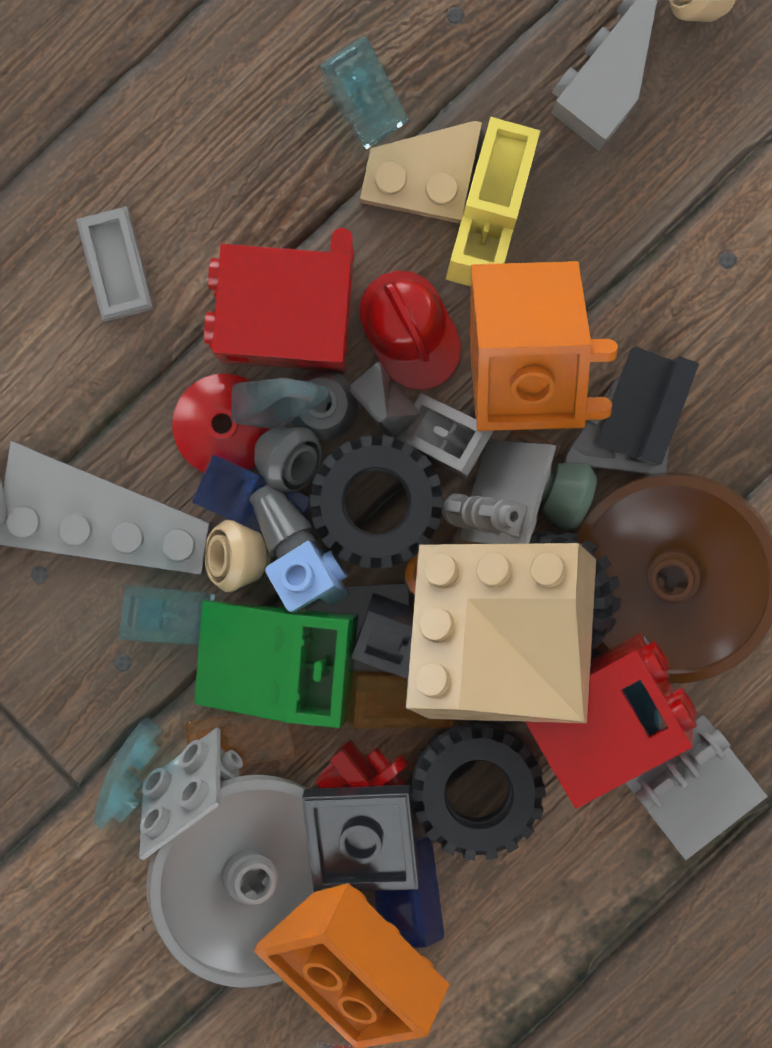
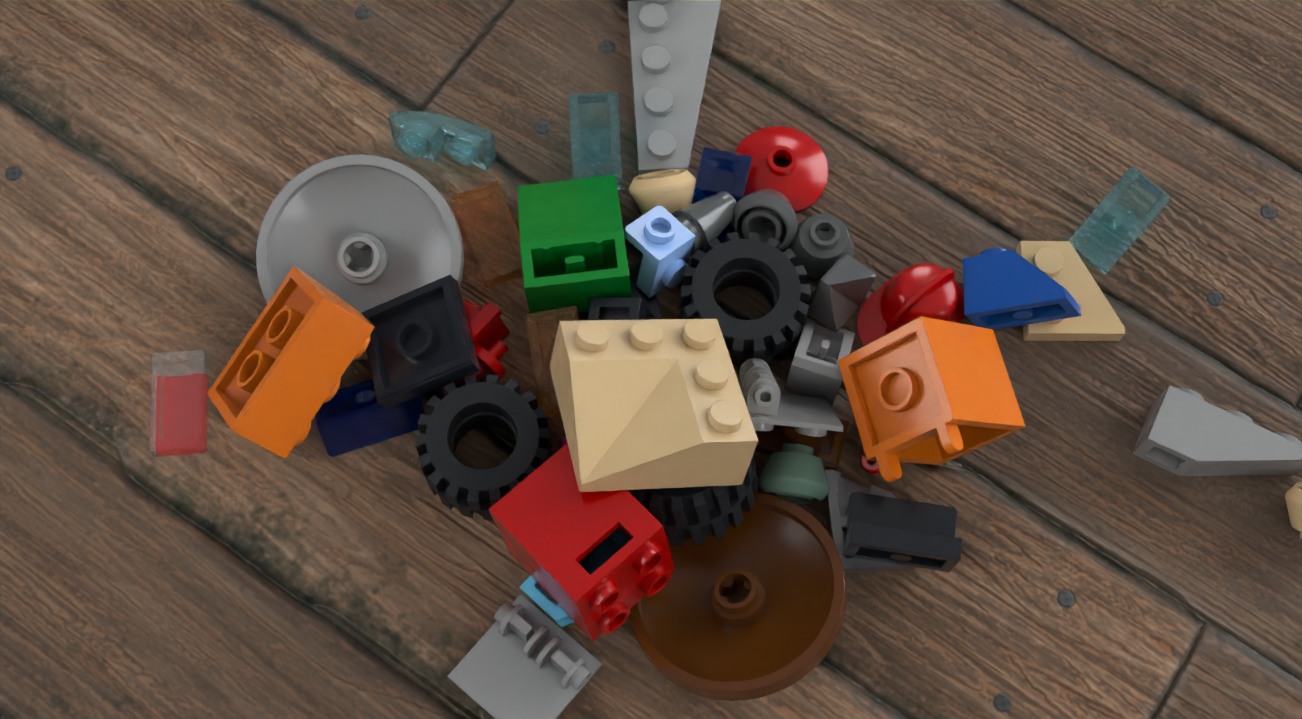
camera: 75 degrees right, 20 degrees down
(115, 264) = (899, 55): light grey tile -> none
(184, 790) = (460, 191): light grey hinge -> none
(274, 401) = (816, 190): clear light blue slope -> none
(282, 305) = (906, 184): red container -> none
(419, 227) = (1011, 292): none -> blue slope
(493, 198) = (1064, 357): light yellow slope -> none

